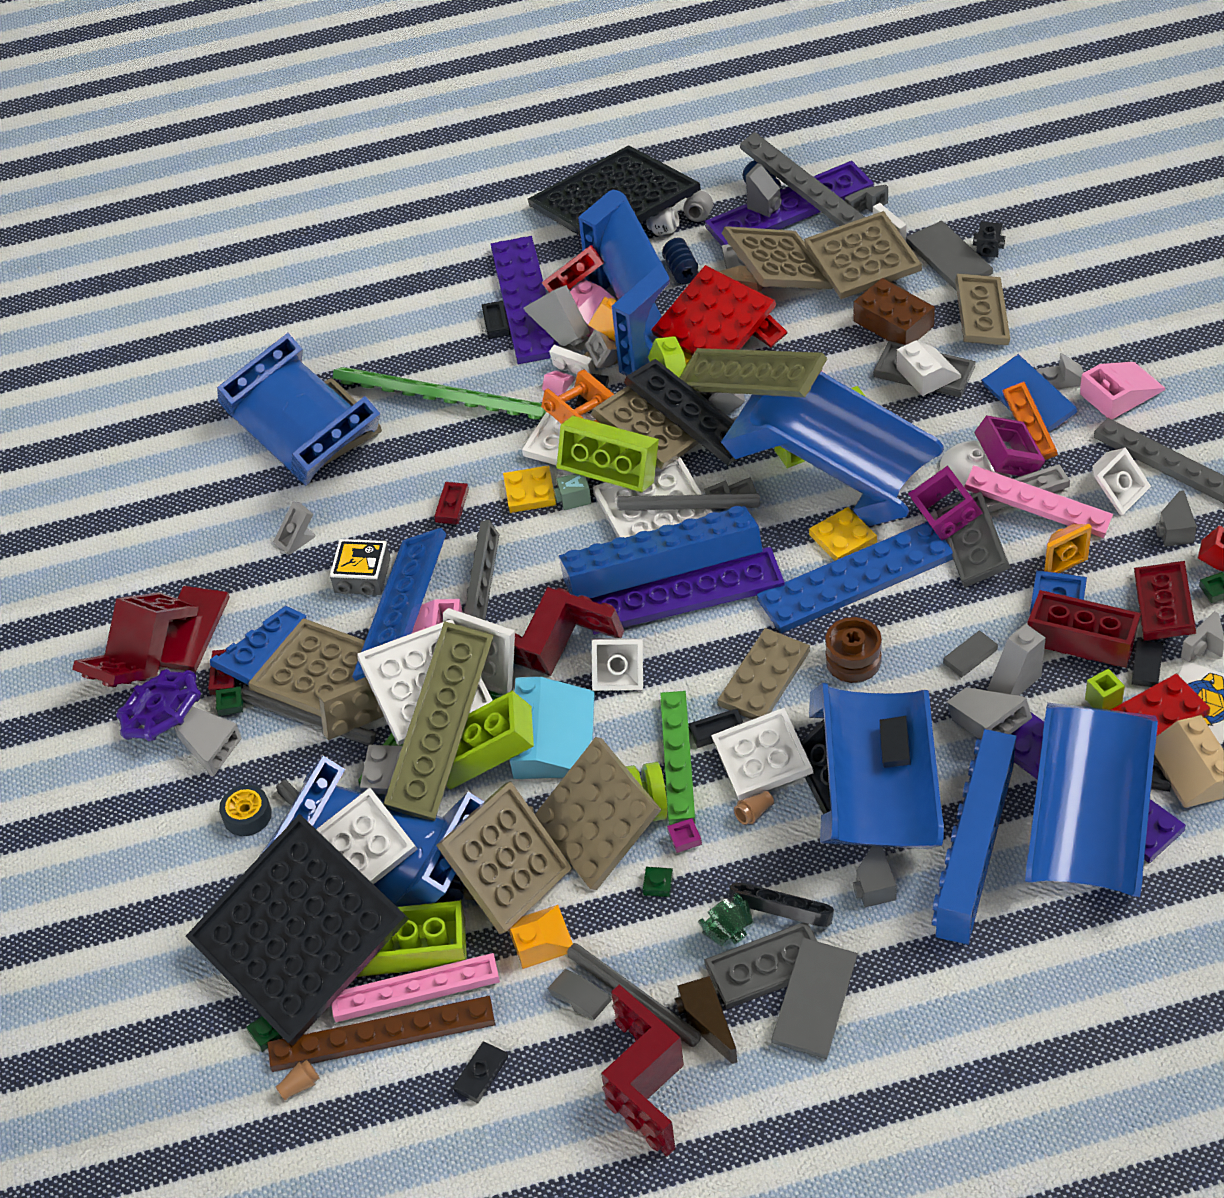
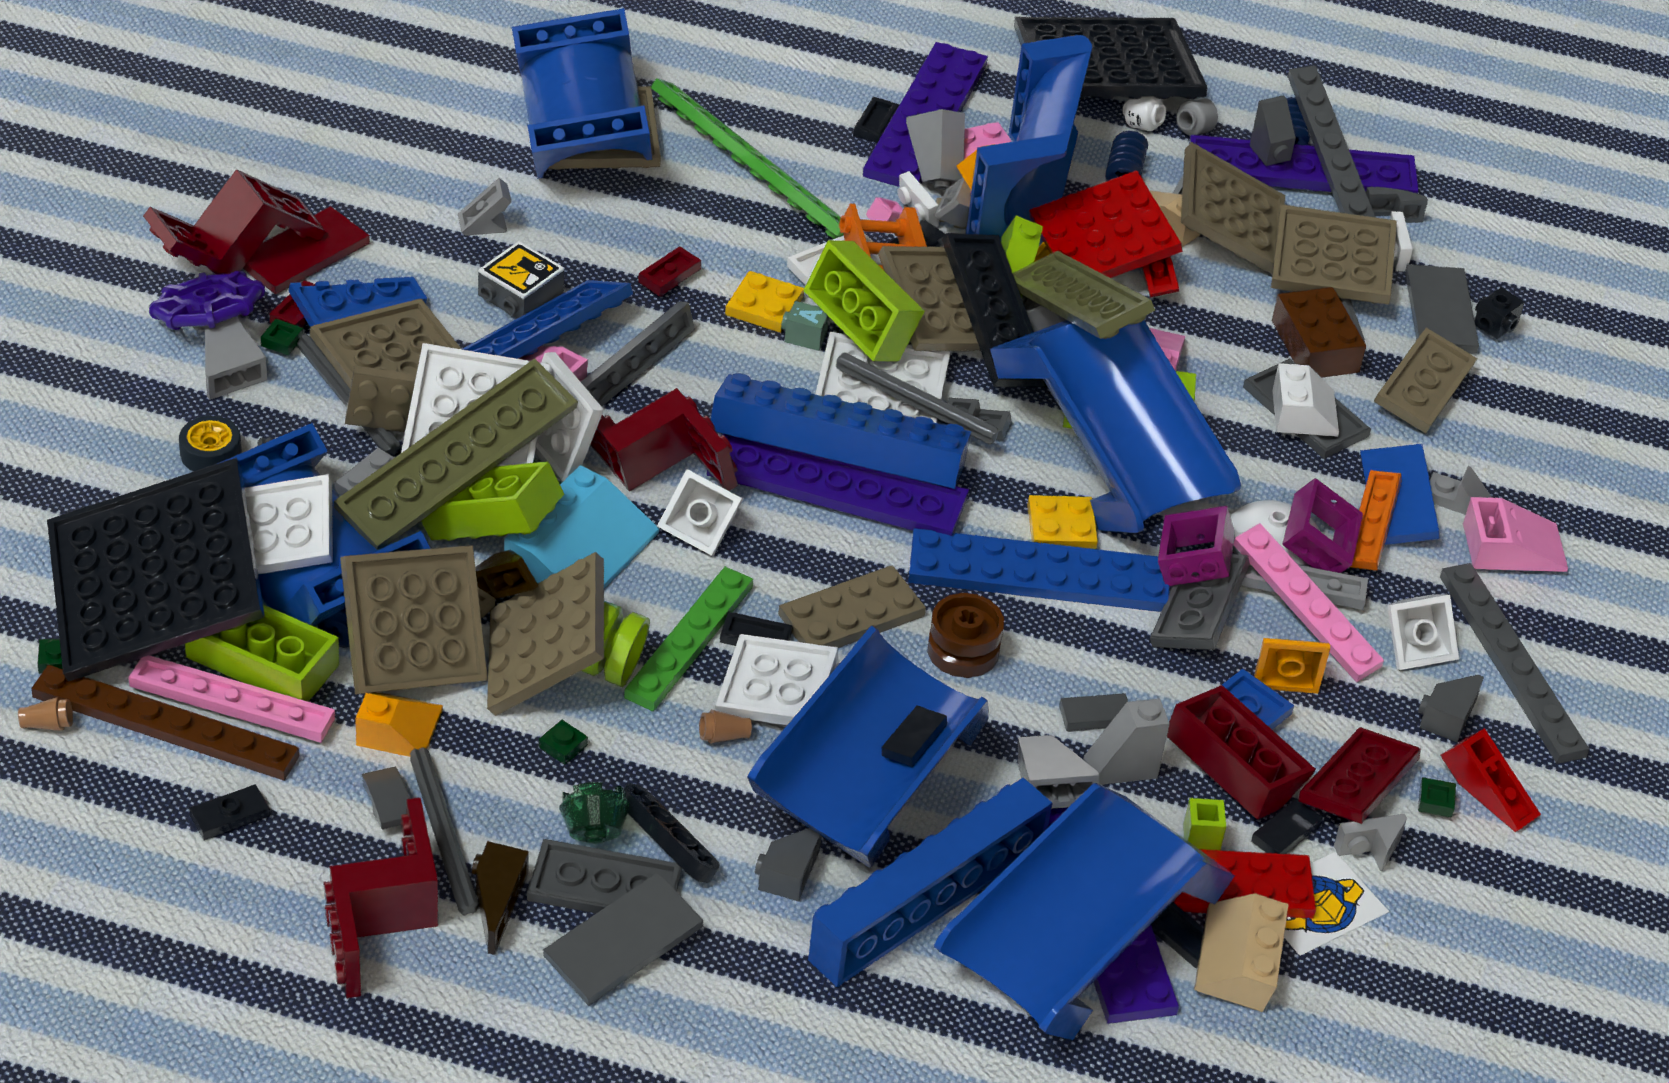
camera: 20 degrees right, 5 degrees down
(537, 784) = (504, 575): none -> dark brown slope
(574, 270) = (991, 106): red slope -> none
(684, 835) = (627, 713): magenta plate -> none

